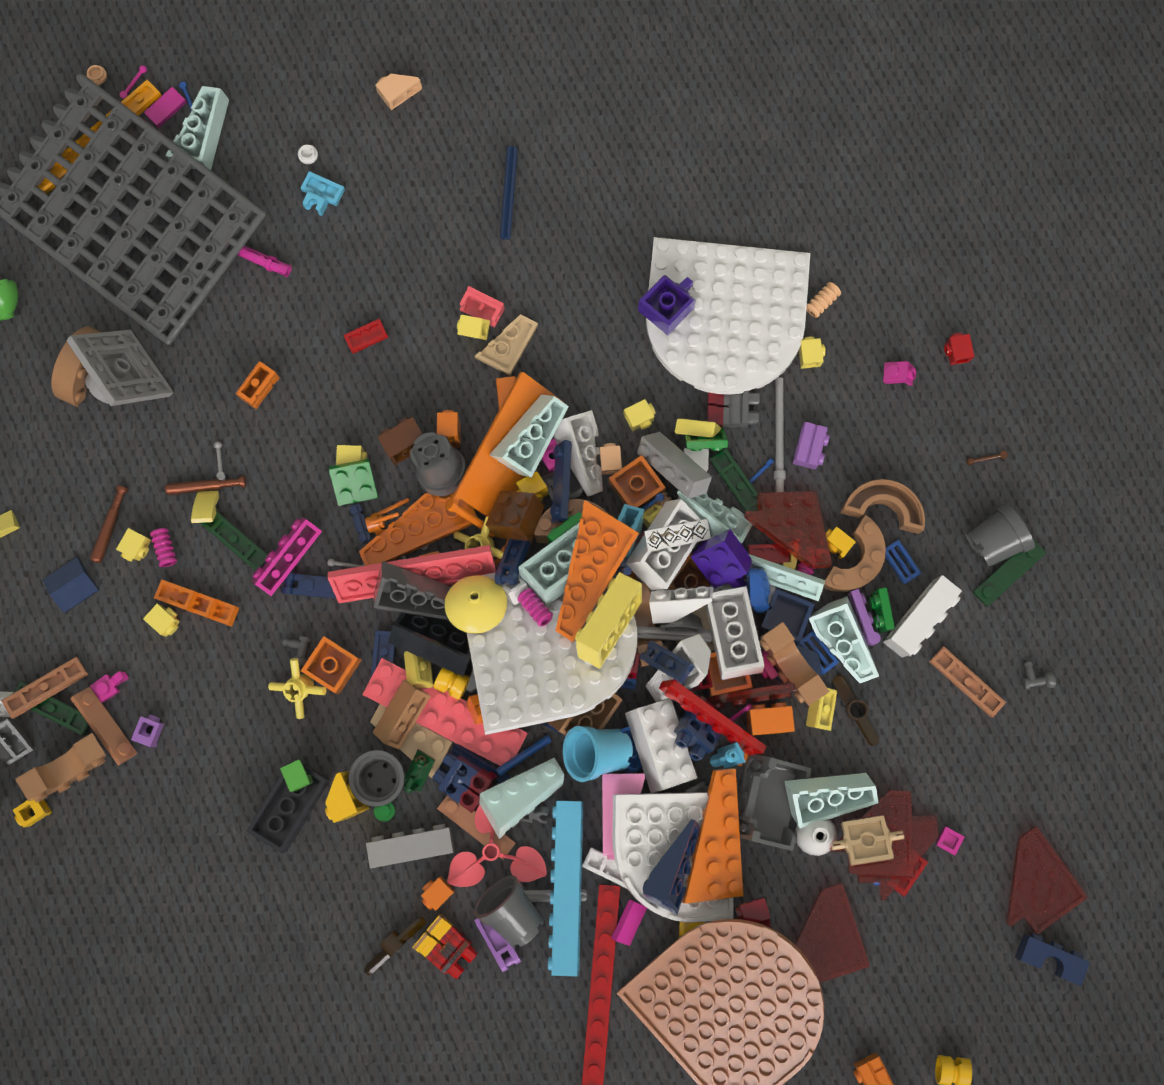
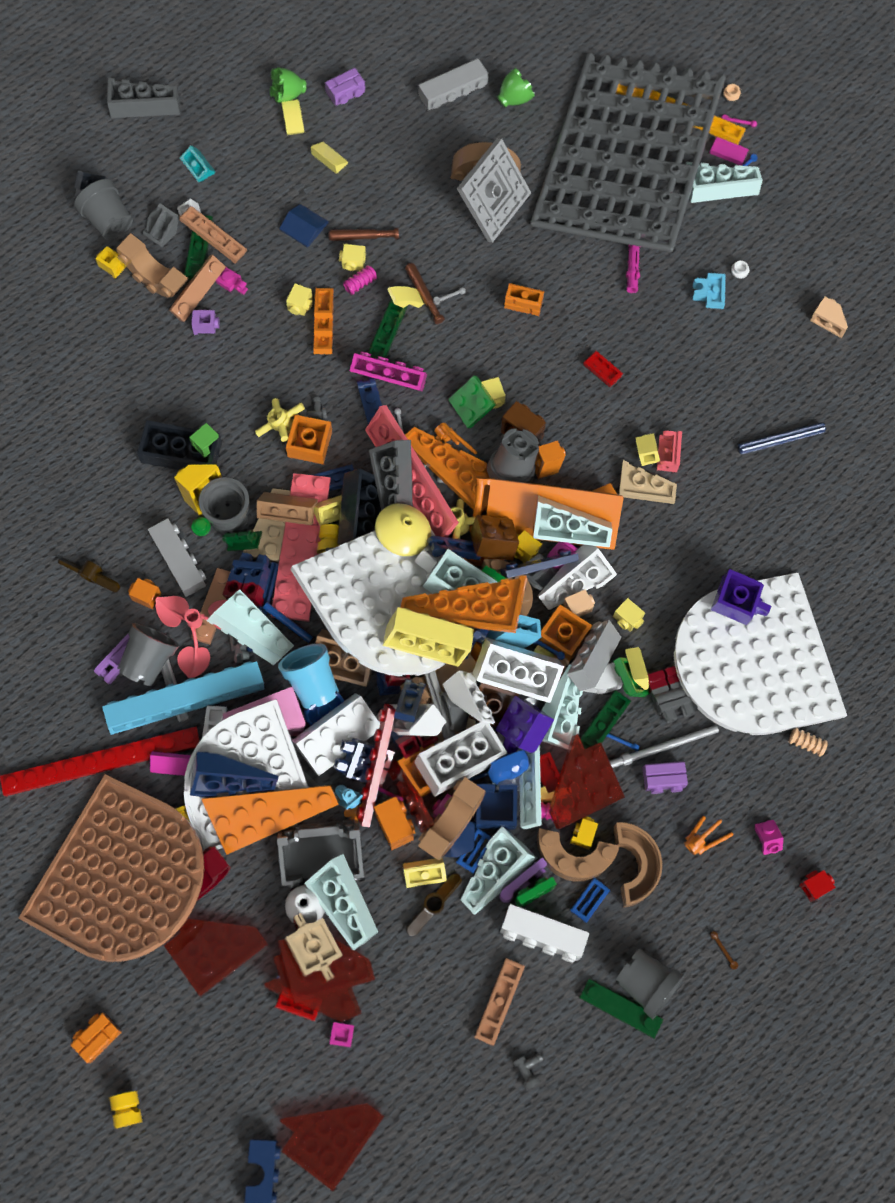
camera: 65 degrees right, 10 degrees down
(360, 523) = (443, 418): dark blue axle -> none
(445, 955) = (101, 615): hips -> none
(535, 607) = (418, 576): dark pink piece -> none
(677, 535) = (529, 674): white sticker -> none
(811, 352) = (753, 747): light yellow brick -> none
(884, 441) = (695, 843): none -> orange plant

